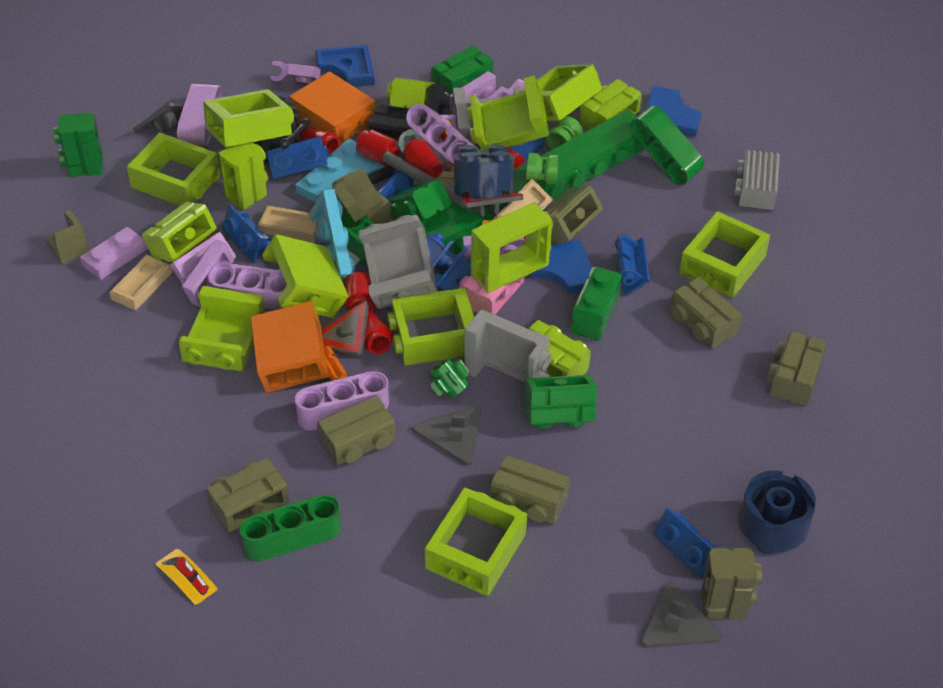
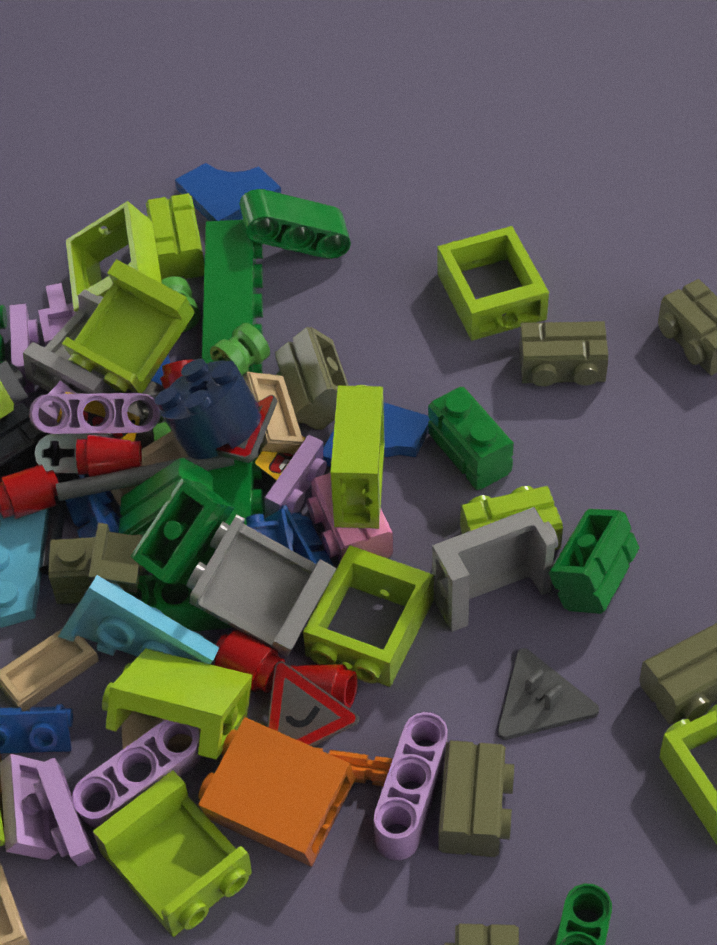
camera: 50 degrees left, 5 degrees up
(392, 201) = (181, 532): none -> green brick
(449, 378) = (468, 649): green gear -> none
(632, 263) = (433, 367): blue hinge -> none
(758, 179) = (409, 186): light grey brick -> none

